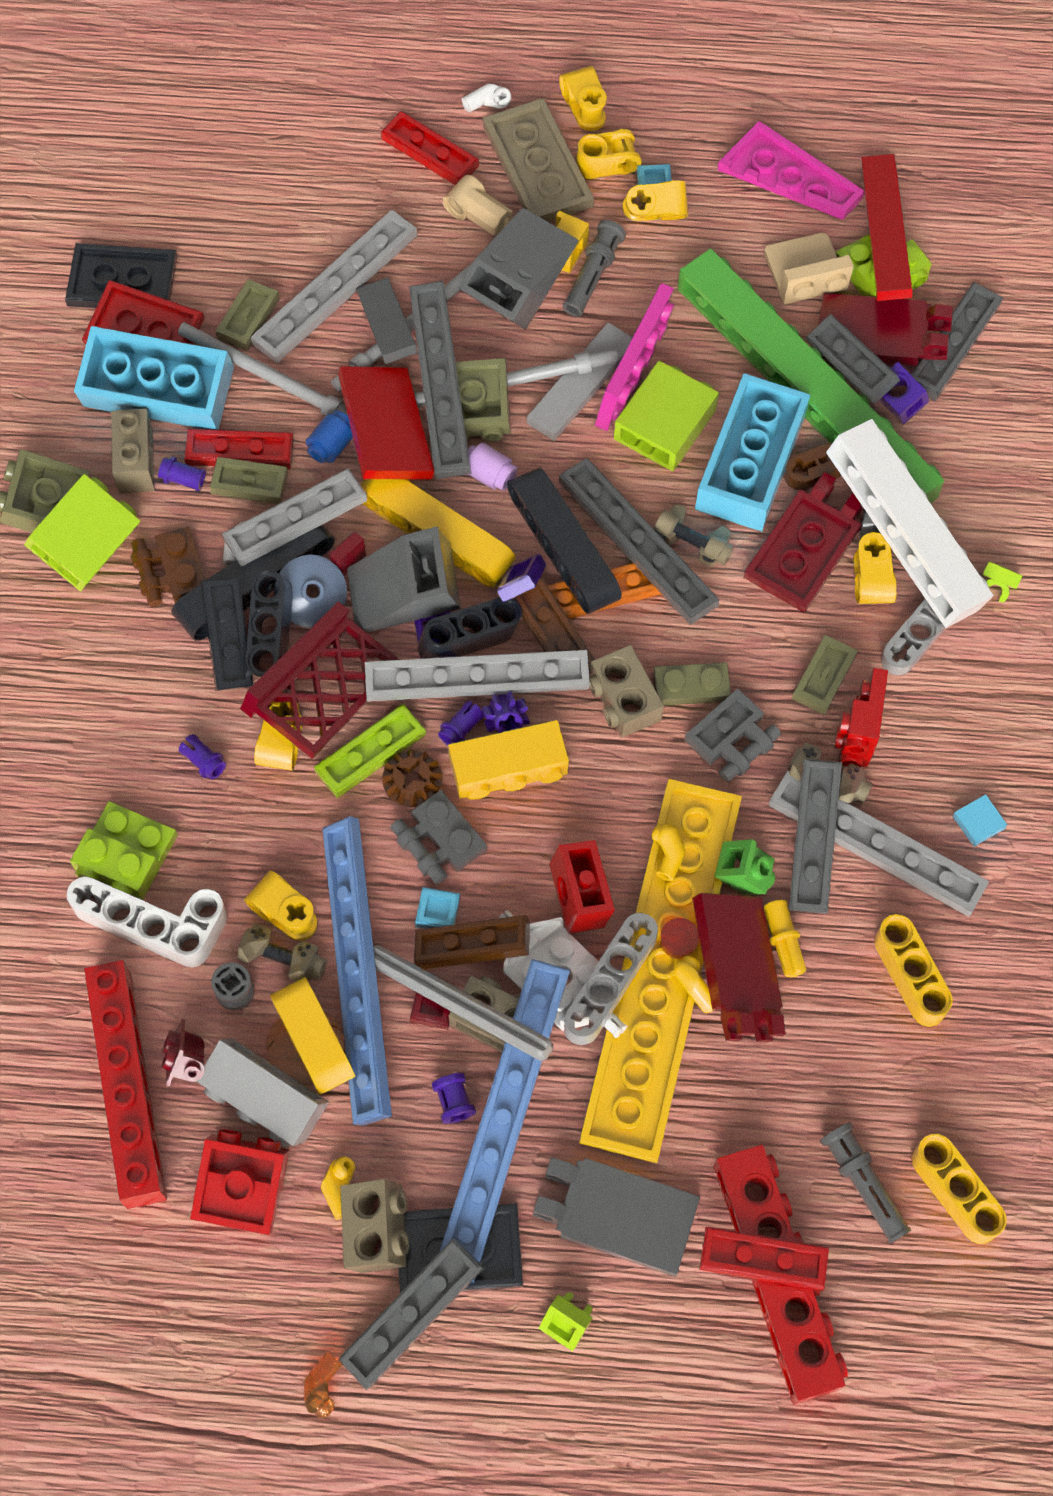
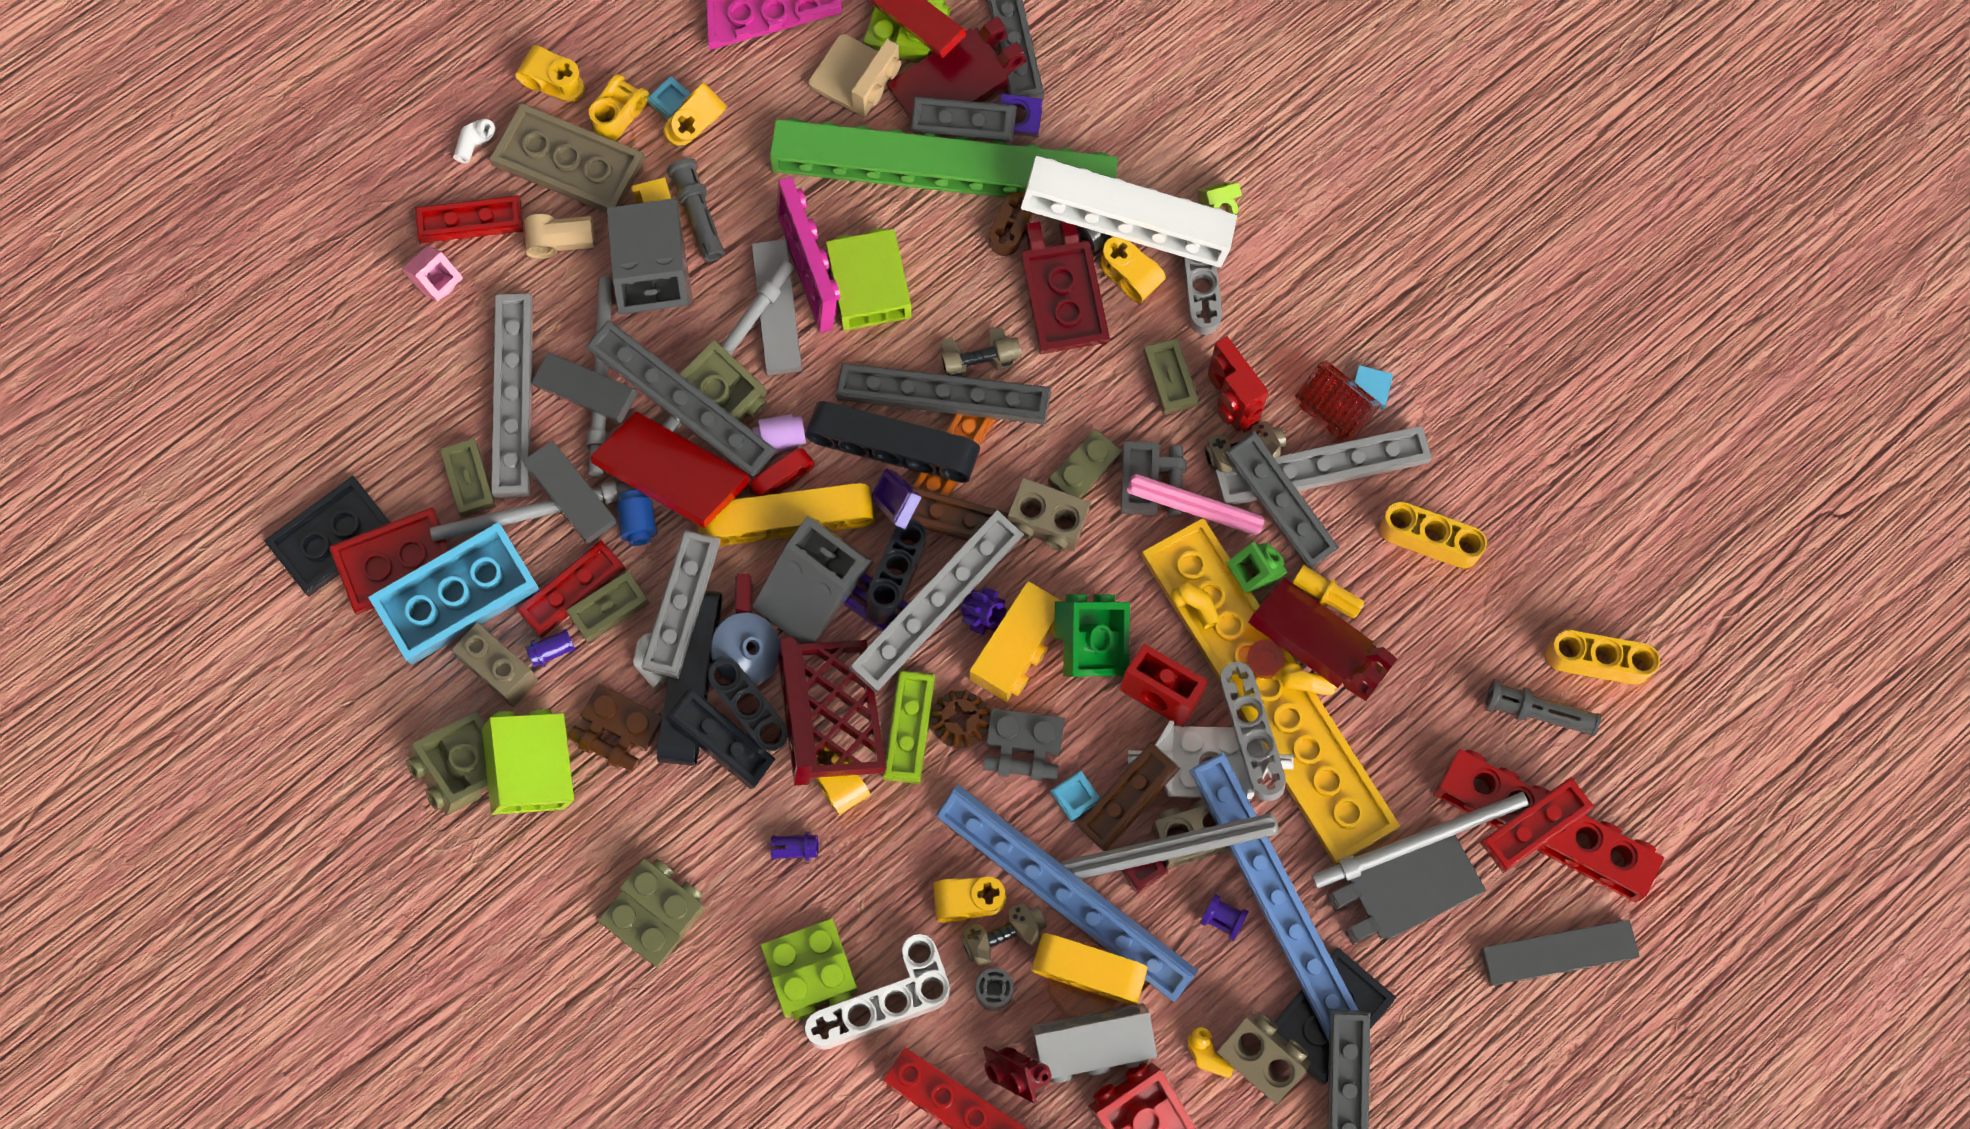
camera: 45 degrees left, 5 degrees up
(62, 712) = (653, 912): none -> olive plate
(301, 379) = (569, 492): none -> dark grey tile
(363, 161) = (432, 273): none -> bright pink brick
(460, 724) = (956, 656): dark purple pin -> none
(464, 495) = (783, 473): none -> red beam
(565, 801) = (1093, 635): none -> green plate
(566, 1321) = (1450, 992): lime tile -> none
(585, 1152) = (1351, 867): none -> light grey bar
(688, 1381) = (1559, 953): none -> dark grey tile
(744, 780) = (1195, 504): none -> bright pink axle
(752, 452) = (962, 253): medium azure brick -> none
(938, 803) = (1337, 401): none -> clear red brick

